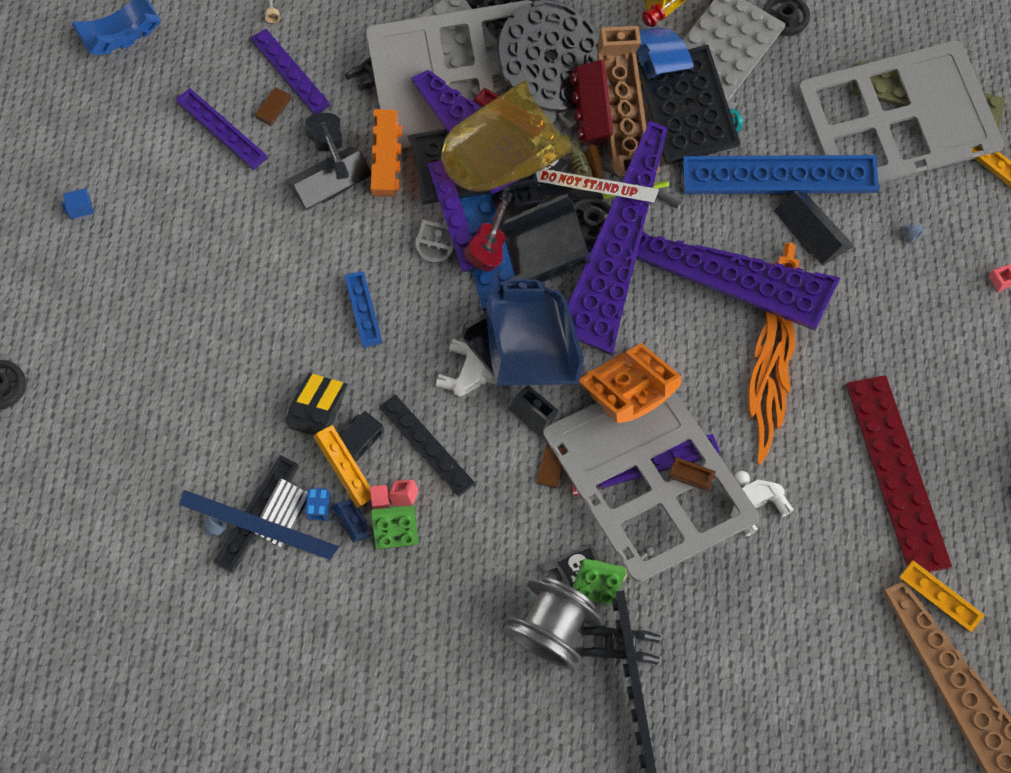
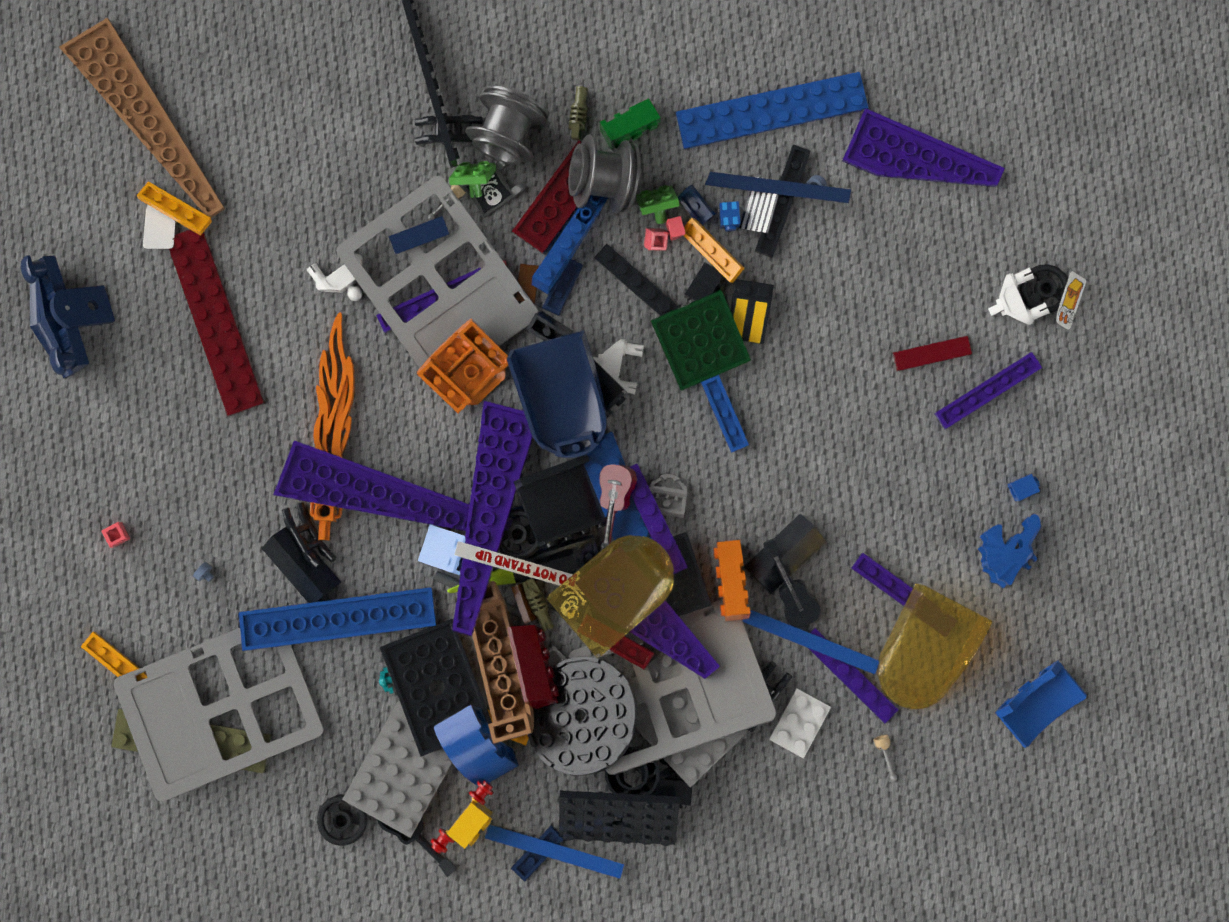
camera: 175 degrees right, 20 degrees up
(37, 374) = (1011, 302): none -> white connector
(86, 297) = (988, 390): none -> dark purple plate
(113, 139) = (1003, 560): none -> blue animal
(113, 549) = (902, 152): none -> dark purple wing
(134, 340) = (932, 353): none -> dark red tile
(208, 77) = (929, 648): none -> clear yellow windscreen
(246, 616) = (771, 110): none -> blue plate
(273, 106) = (857, 630): reddish brown tile -> none
(318, 97) = (812, 641): none -> blue sticker
(343, 40) = (800, 723): none -> white plate
(374, 378) = (700, 340): none -> dark green plate
(411, 617) = (630, 124): none -> green wedge
(448, 550) = (605, 174): none -> flat silver wheel
(468, 642) = (578, 113): none -> olive hinge
(499, 500) = (567, 244): none -> blue slope
(501, 551) = (549, 210): none -> dark red plate
(513, 459) = (562, 288): none -> dark blue tile
(665, 518) = (419, 235): none -> dark blue tile
(667, 219) = (440, 549): none -> light blue slope
(692, 474) = (399, 283): reddish brown tile -> none
(808, 237) = (307, 525): none -> black piece
(960, 574) = (158, 230): none -> white sticker

